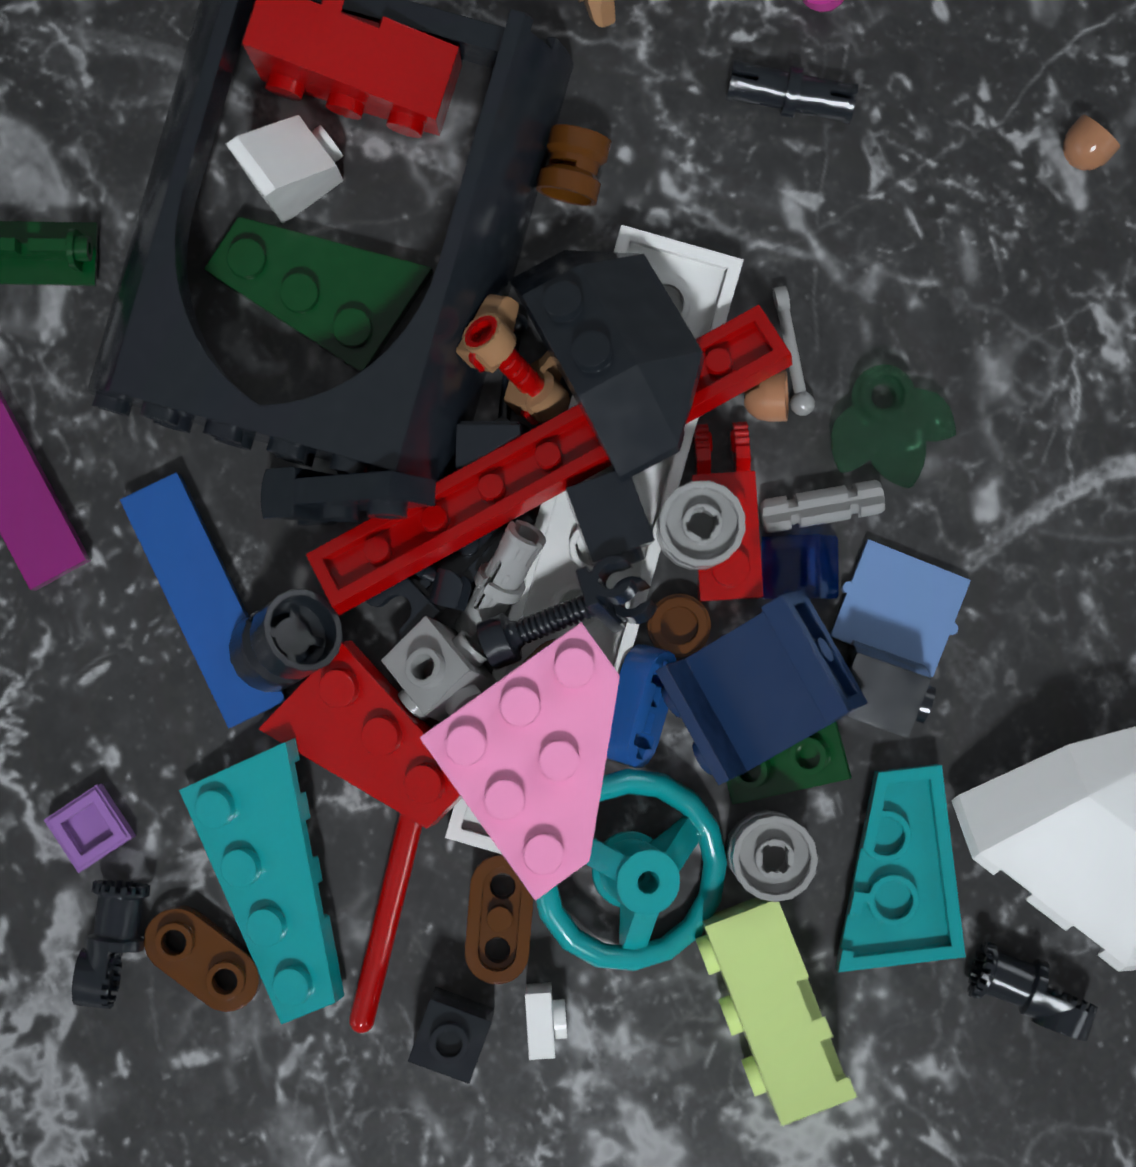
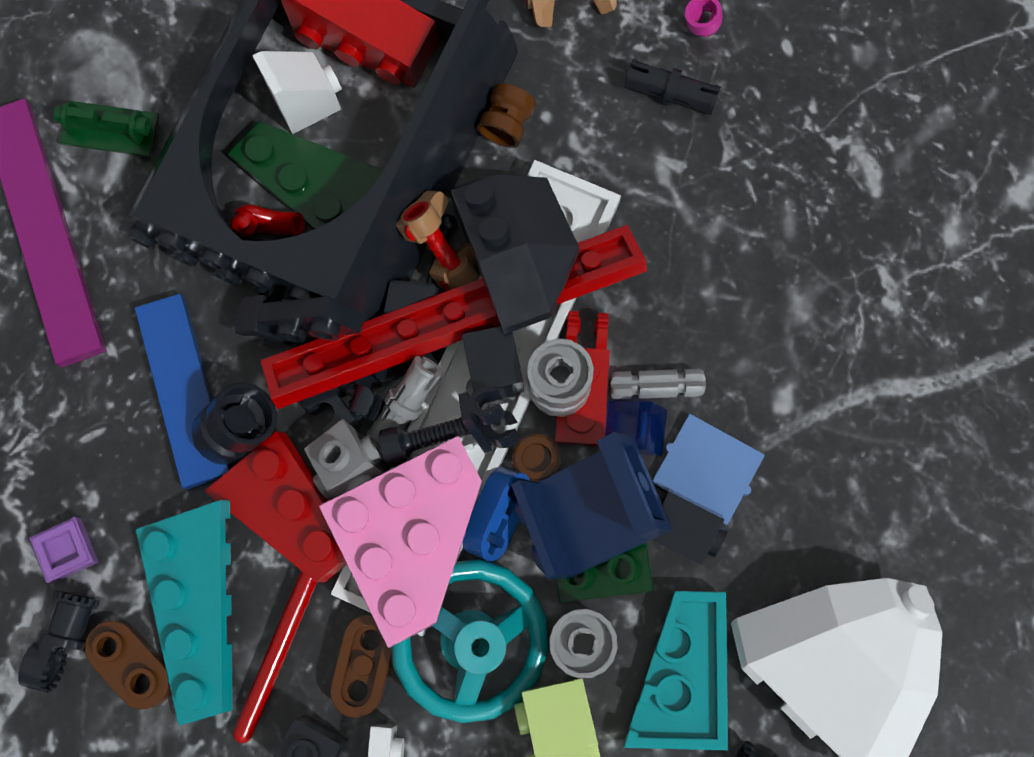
camera: 15 degrees right, 10 degrees down
(255, 356) = (261, 220): none -> red arm
(769, 399) = (627, 297): nougat hinge -> none
(802, 402) = (652, 305): light grey hinge -> none
(890, 436) = (716, 339): clear green plate -> none
(1089, 144) = (887, 149): nougat hinge -> none

